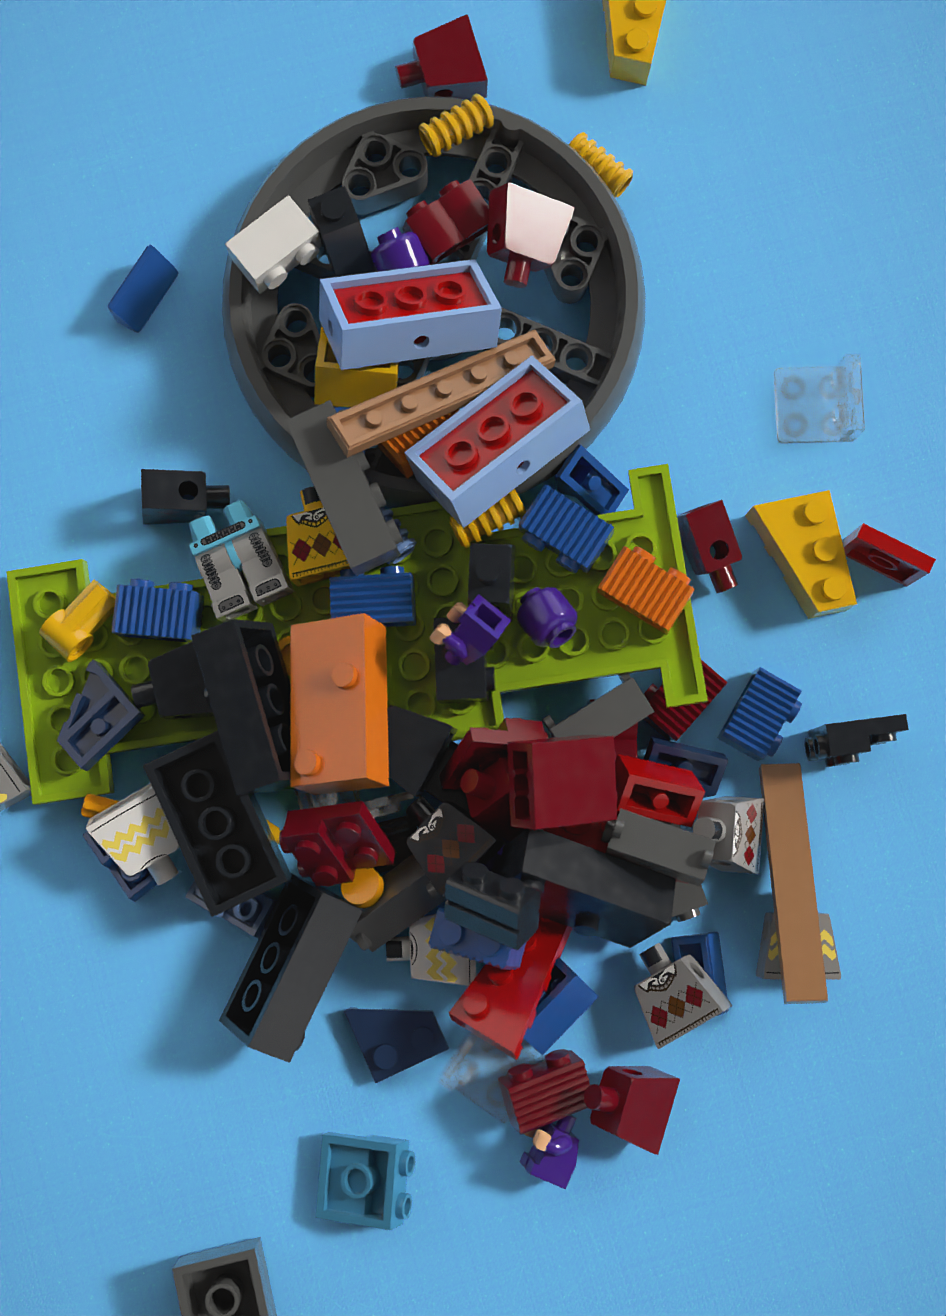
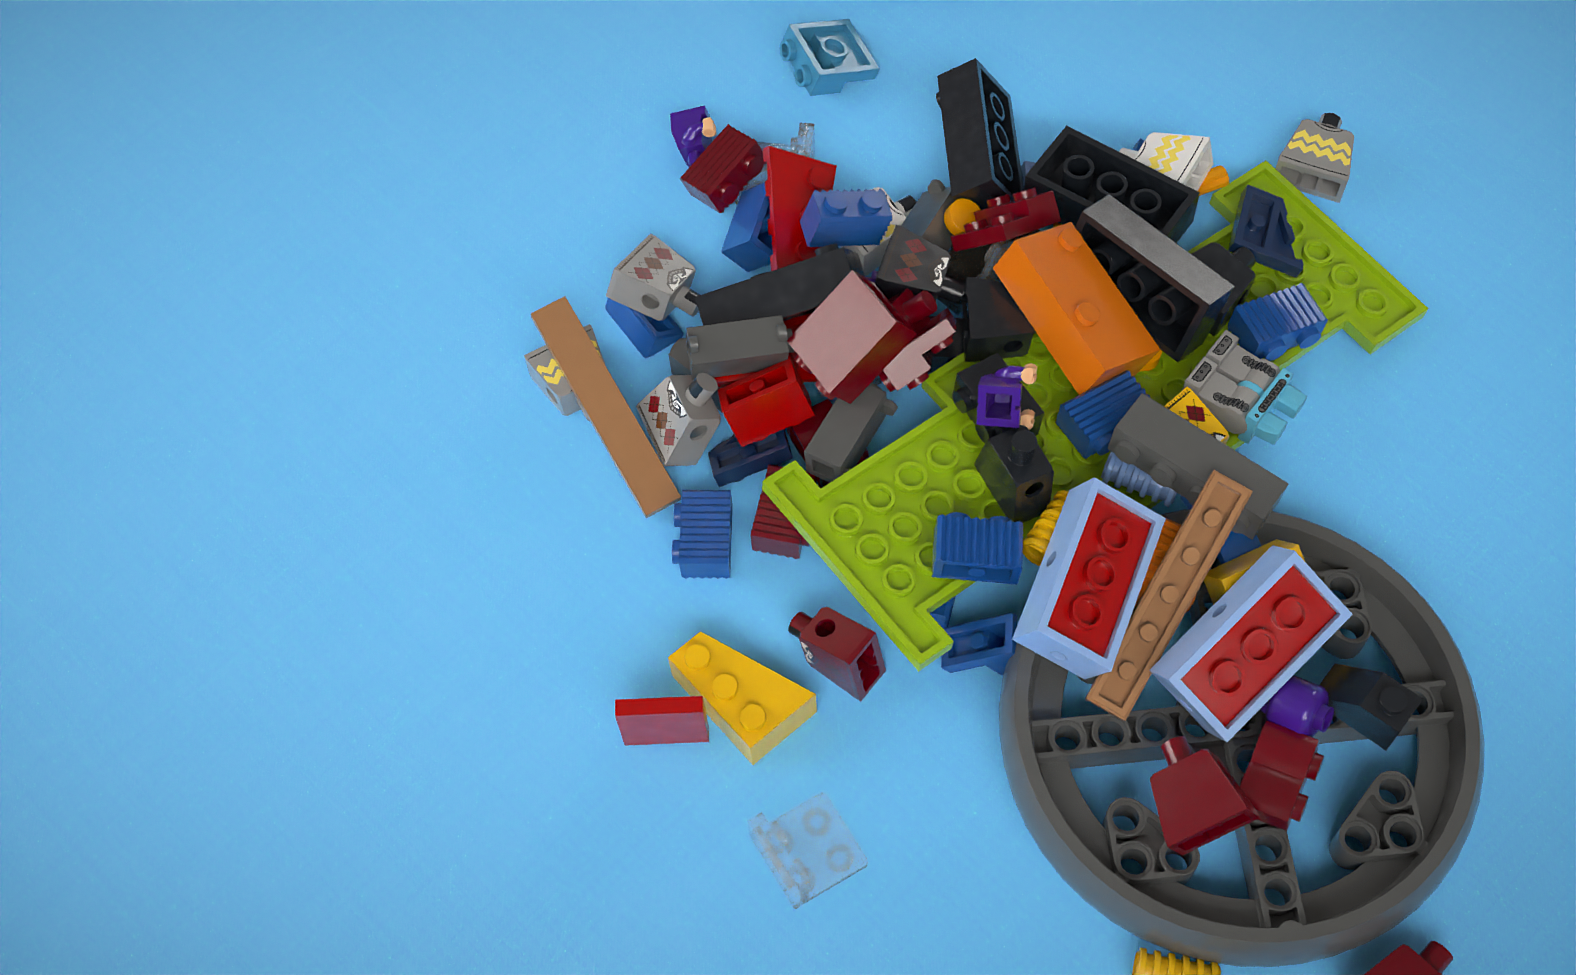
camera: 160 degrees right, 20 degrees down
(72, 628) = (1337, 285): yellow piece -> none
(142, 289) = (1512, 601): blue slope -> none
(164, 491) = (1336, 432): black torso -> none
(274, 245) = (1422, 649): white brick -> none
(395, 1038) = (867, 156): dark blue wing -> none
(456, 125) = (1342, 880): yellow piece -> none
(492, 905) = (851, 222): black brick -> none
(547, 617) = (946, 469): dark purple head -> none
(633, 1104) = (649, 191): dark red torso -> none
(646, 588) = (873, 532): orange brick -> none
(844, 741) = (616, 548): black plate -> none

